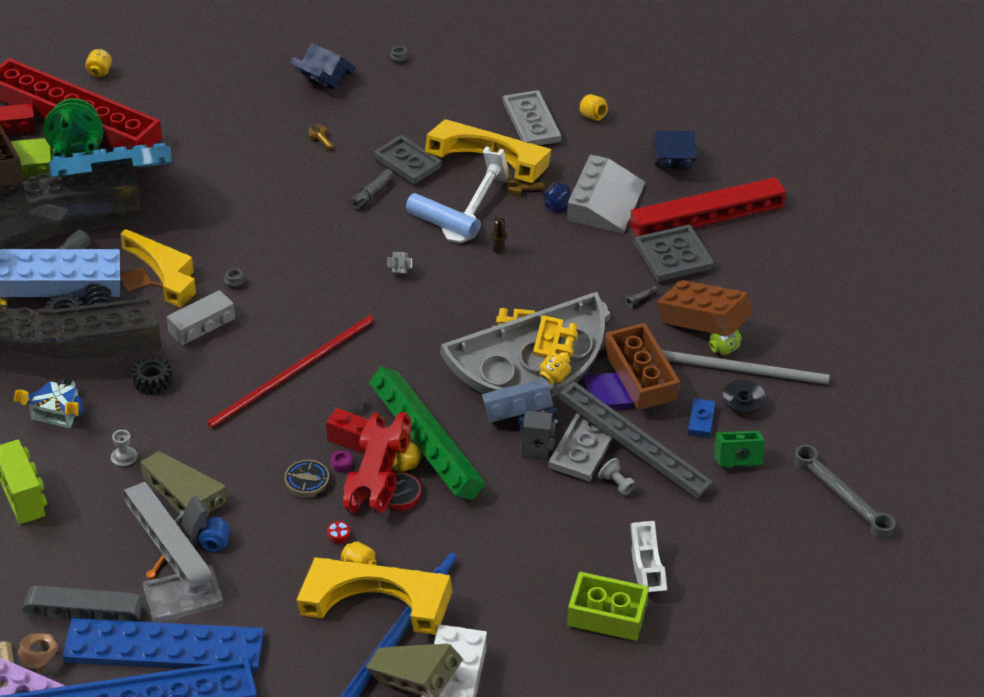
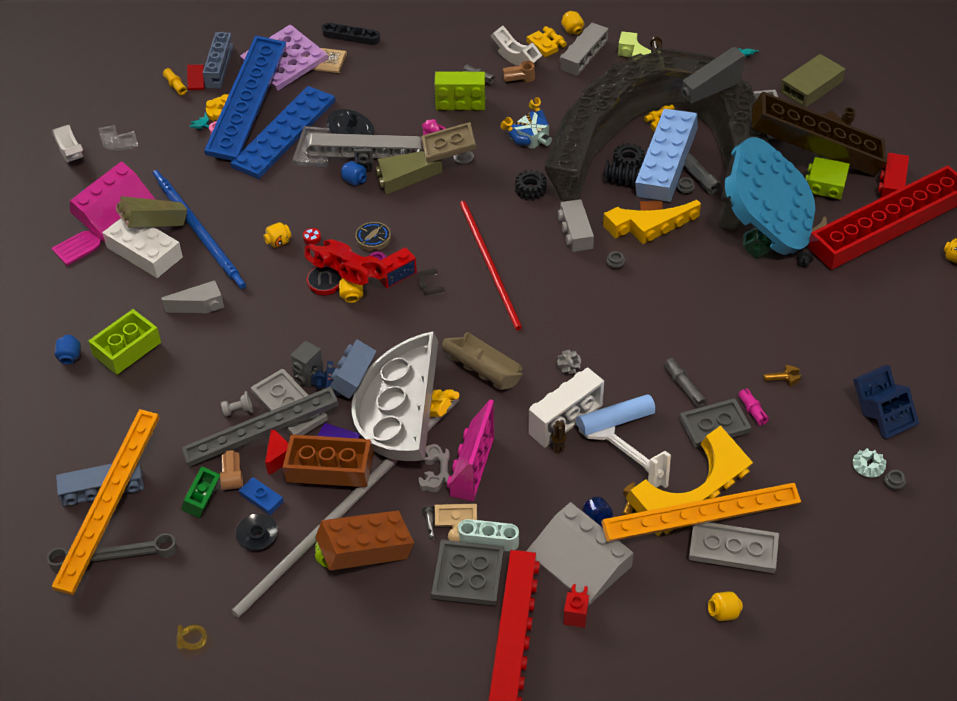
camera: 120 degrees right, 5 degrees up
(37, 660) = (313, 70): medium nougat piece -> none
(71, 603) = (343, 98): dark grey beam -> none
(73, 128) = (829, 187): green piece -> none
(100, 494) = (431, 126): none -> dark pink piece
(133, 566) = (349, 122): none -> black piece
(134, 444) = (448, 142): none -> dark tan tile
(162, 175) = (756, 243): none -> clear green brick
(334, 580) = (211, 245): yellow arch -> none
(372, 144) = (753, 406): none -> dark pink pin
(395, 74) = (873, 470): none -> light aqua gear
(428, 434) = (362, 305): green brick -> none
(437, 319) = (484, 360): none -> dark tan container
(462, 239) = (571, 399): none -> white brick
(500, 579) = (198, 299): none -> light grey slope
(524, 132) = (700, 512): none -> light orange plate
(548, 337) = (394, 402): yellow plate -> none
(555, 368) = (360, 396): yellow head -> none
(558, 272) = (473, 455): none -> dark pink slope
(628, 281) = (452, 514): none -> tan plate
(630, 251) = (499, 532): none -> light aqua beam
(646, 556) = (142, 385): white arch -> none
(650, 659) = (67, 349): none -> blue head
(654, 419) = (276, 452): none -> red slope
(659, 180) = (576, 607): none -> red brick
(674, 148) = (613, 640): dark blue bracket -> none
(699, 443) = (231, 474): none -> medium nougat piece
(783, 536) = (85, 484): none -> sand blue brick
(804, 501) = (105, 503): none -> light orange plate
(883, 401) = (182, 643): none -> clear yellow piece

